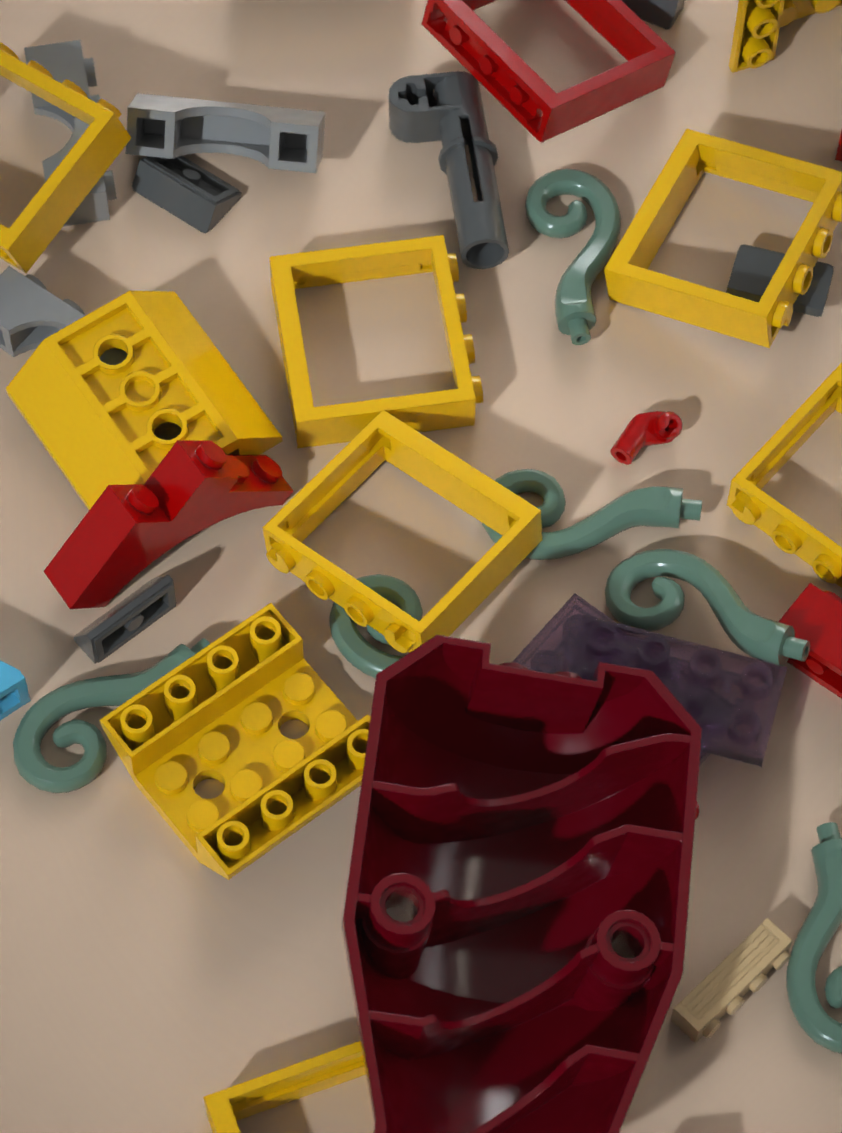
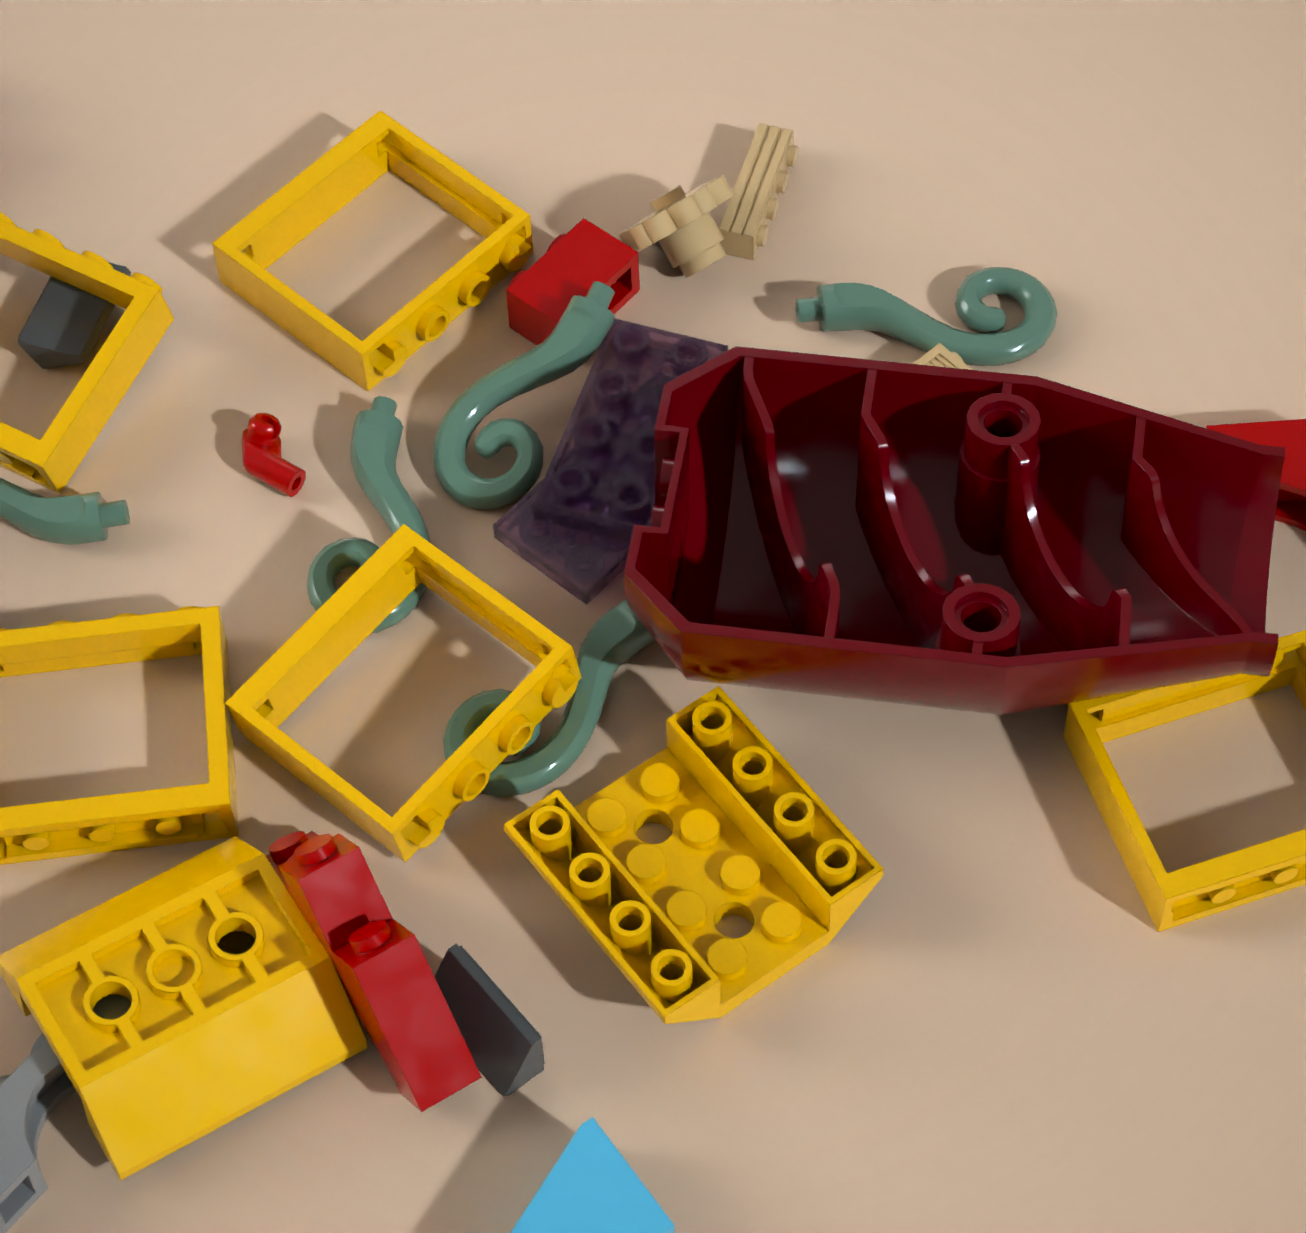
camera: 85 degrees left, 5 degrees down
(74, 697) = (587, 978): sand green plant -> none

